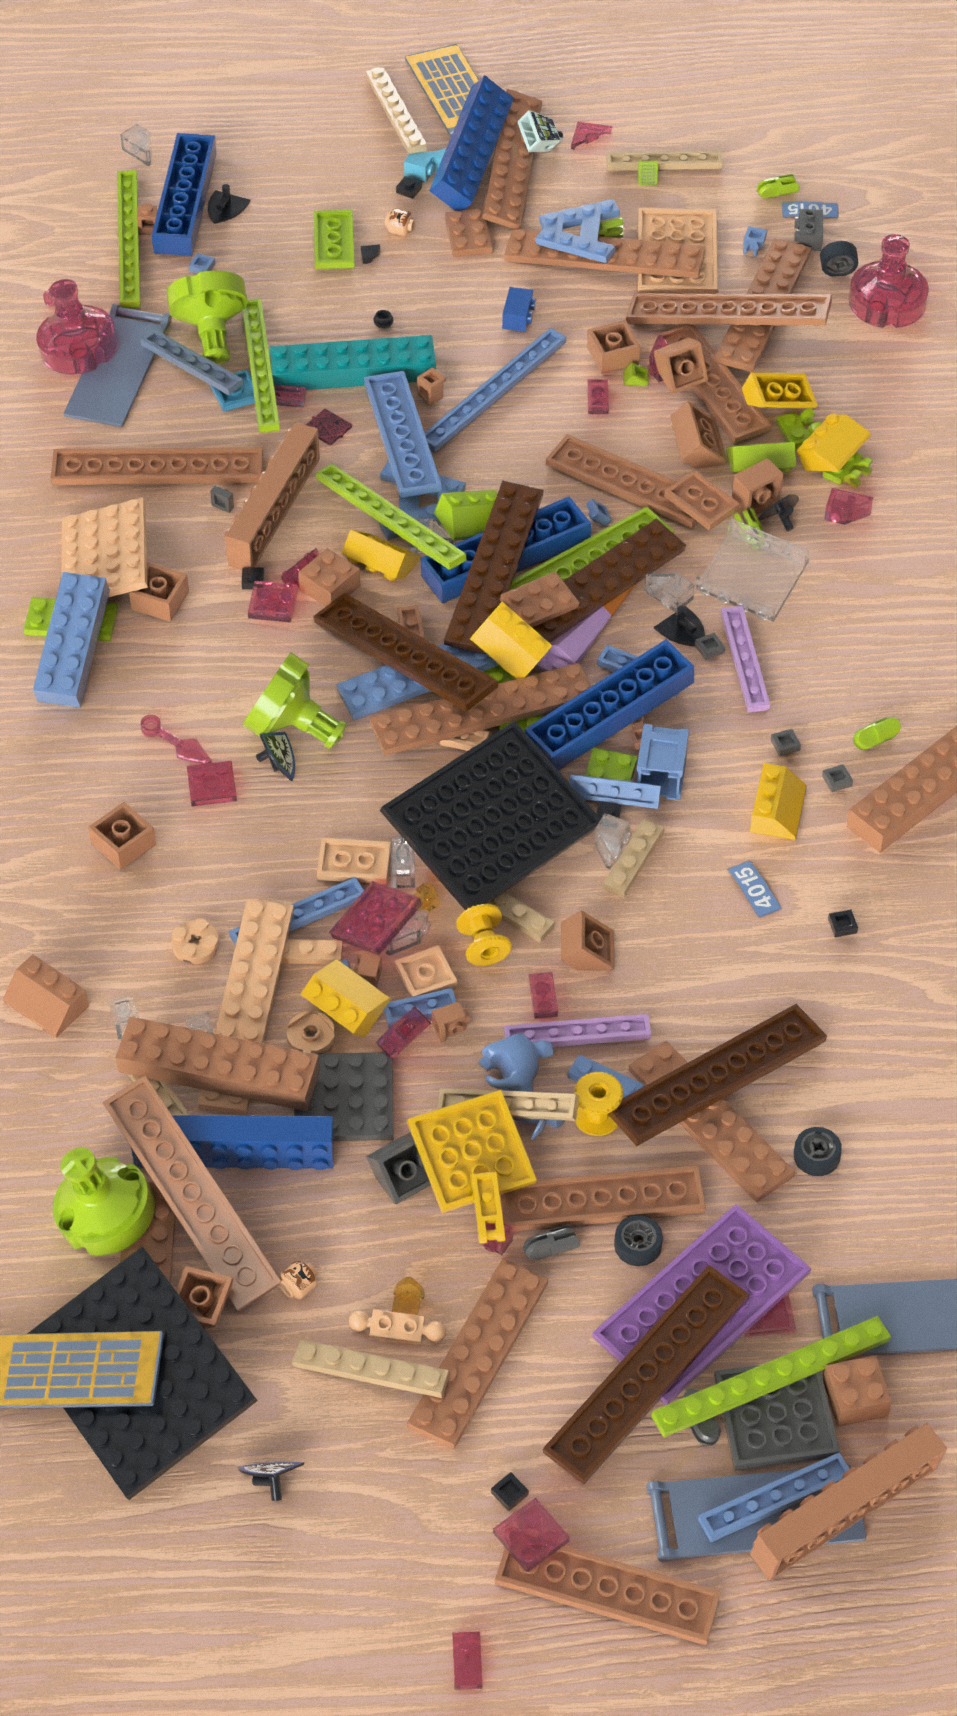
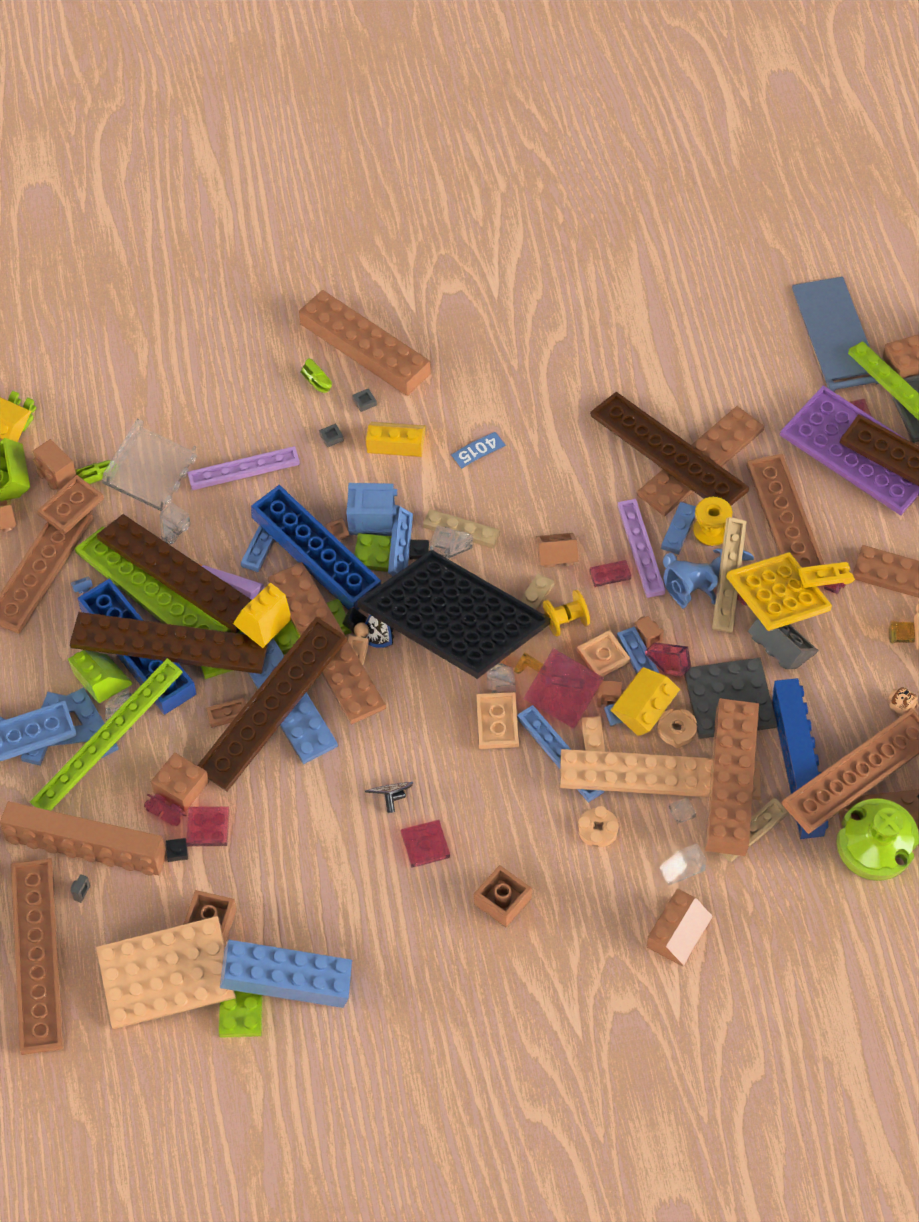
camera: 95 degrees left, 5 degrees up
(185, 749) = (386, 869): clear pink piece -> none
(288, 703) = (346, 782): lime piece -> none
(379, 555) = (144, 746): yellow slope -> none
(541, 599) = (213, 601): nougat plate -> none
(551, 1243) = (832, 544): dark grey arm -> none
(631, 1231) = (820, 485): wheel -> none
(681, 627) = (209, 517): black shield -> none
(710, 646) = (232, 493): dark grey plate -> none
(784, 509) = (74, 447): black shield -> none
(823, 1160) = (717, 401): wheel -> none
(843, 923) = (507, 389): black plate -> none
(847, 506) = (65, 411): clear pink slope -> none

